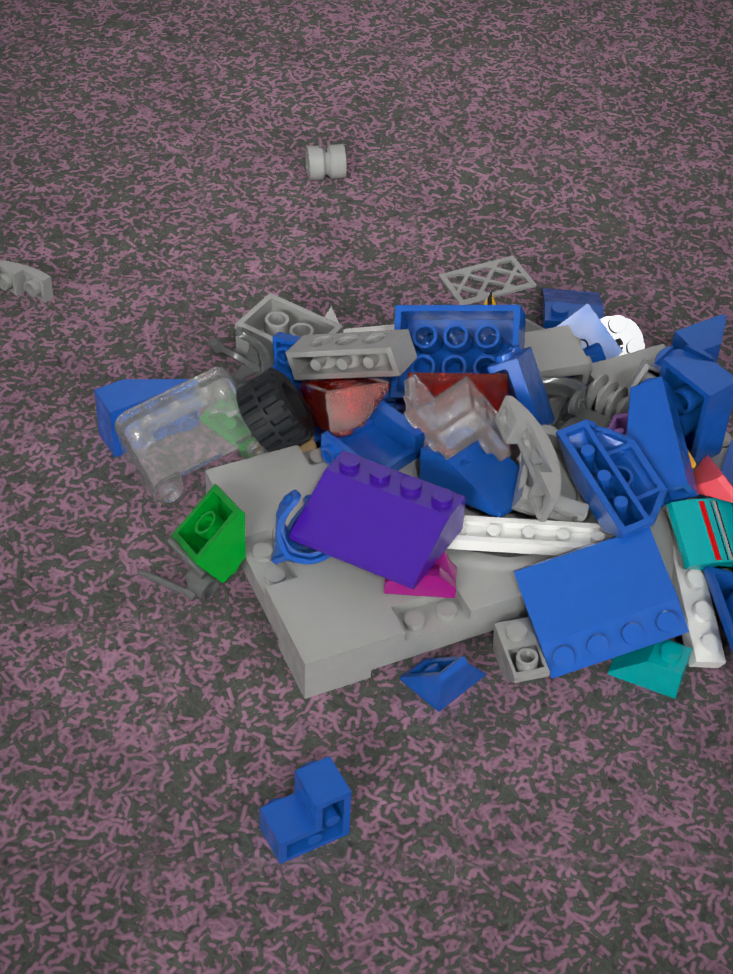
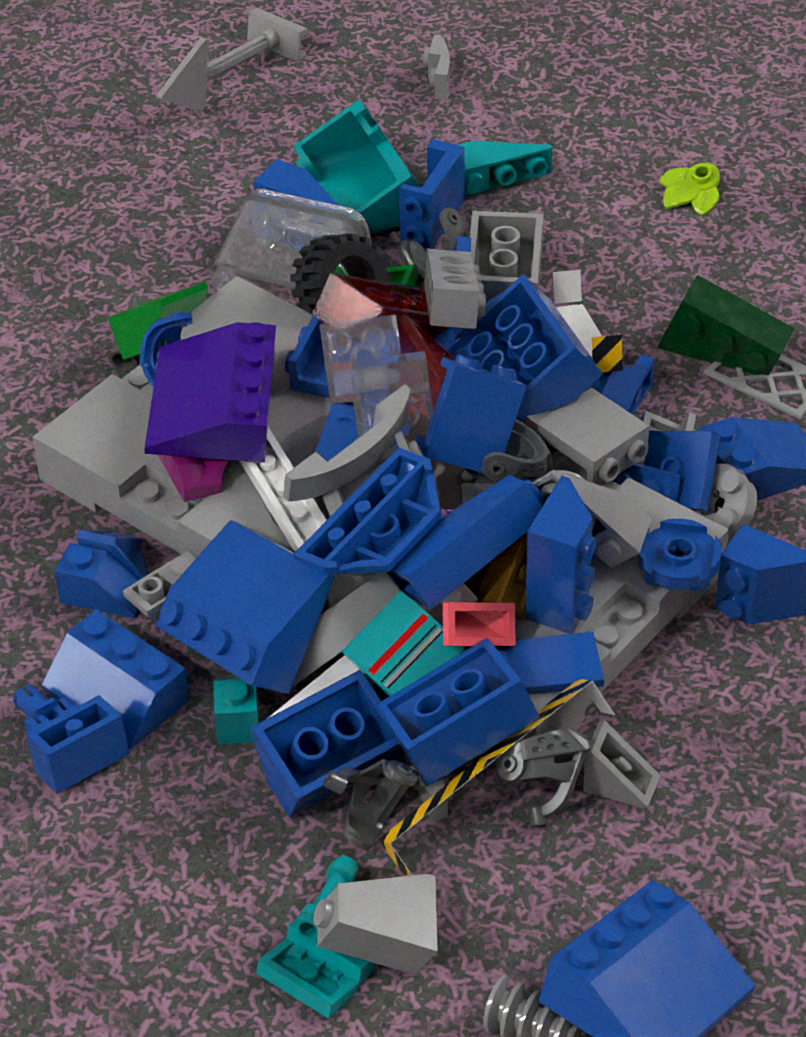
camera: 65 degrees right, 0 degrees up
(94, 360) = (357, 166): none -> teal windscreen
(161, 305) = (503, 163): none -> teal slope
(186, 329) = (444, 188): none -> blue panel
(275, 230) = (693, 186): none -> lime plate
(442, 272) = (725, 330): none -> dark green wedge
(468, 702) = (94, 581): none -> blue slope
(588, 728) = (123, 670): none -> blue slope
(637, 779) = (70, 739): none -> blue brick

